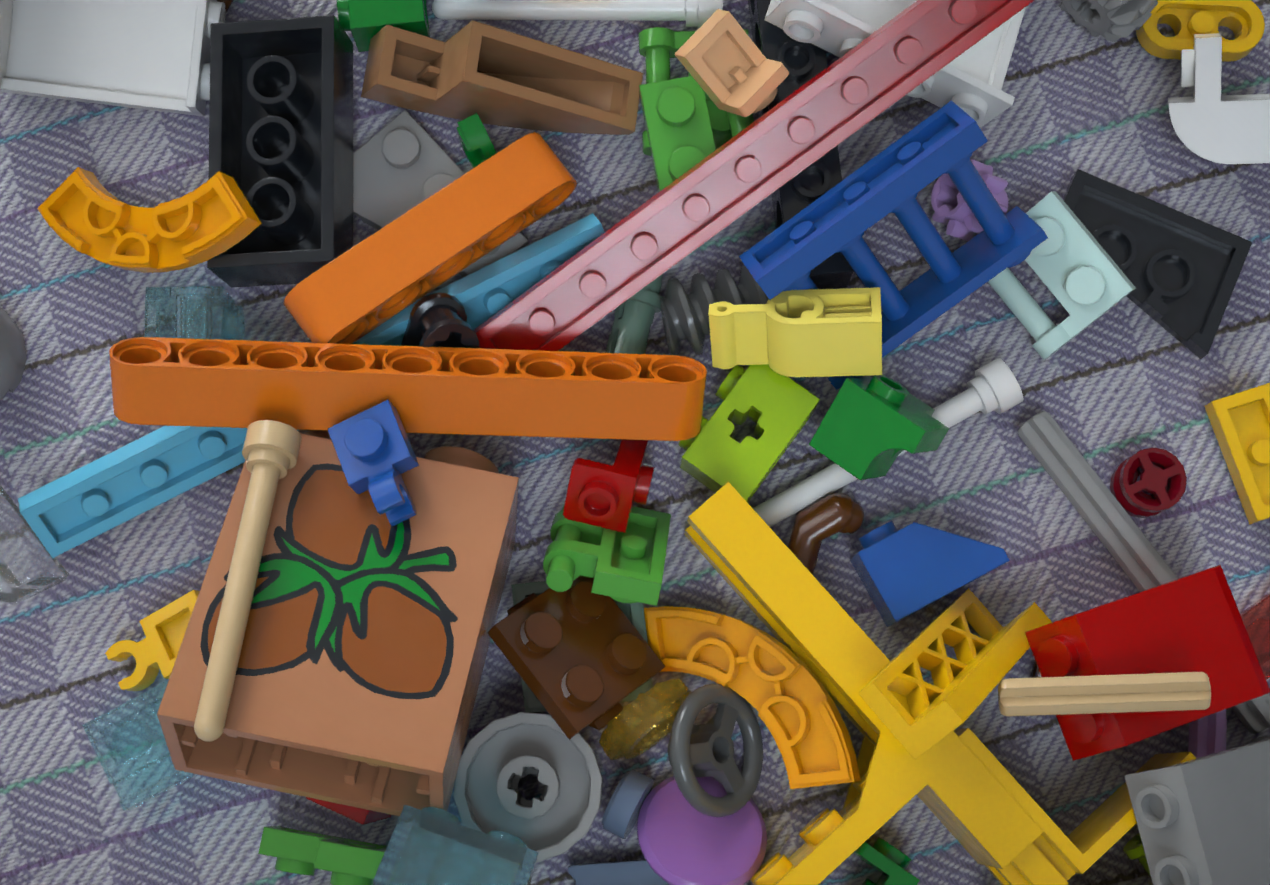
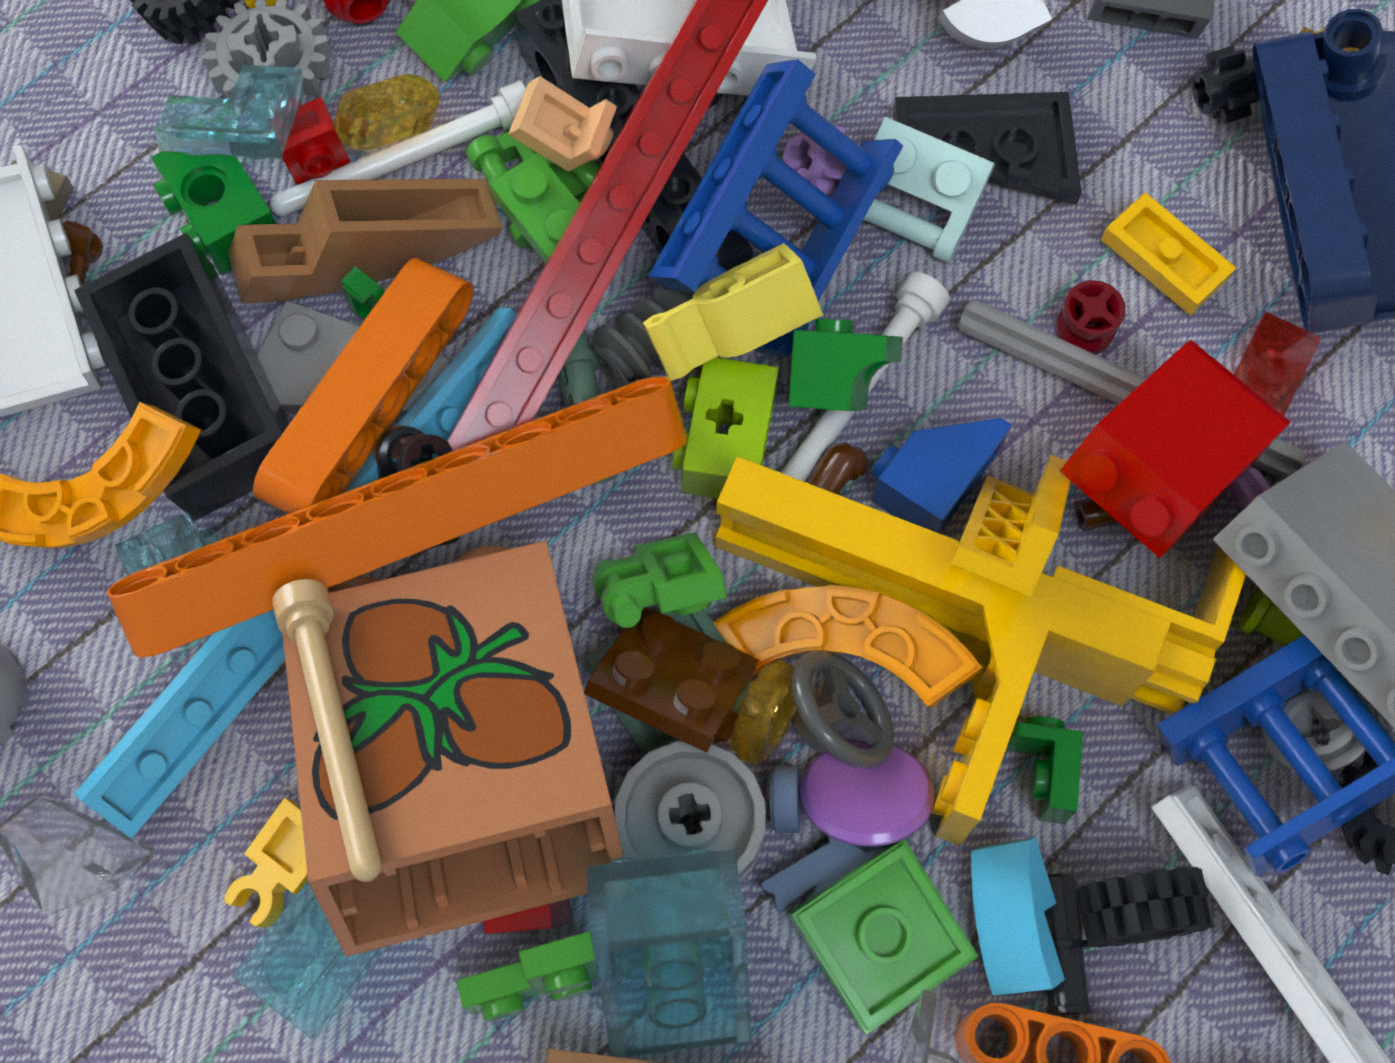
camera: 25 degrees left, 10 degrees down
(374, 456) = (408, 572): blue plate -> none
(606, 493) = (630, 527): red bracket -> none
(1104, 694) = (1158, 474): tan axle -> none

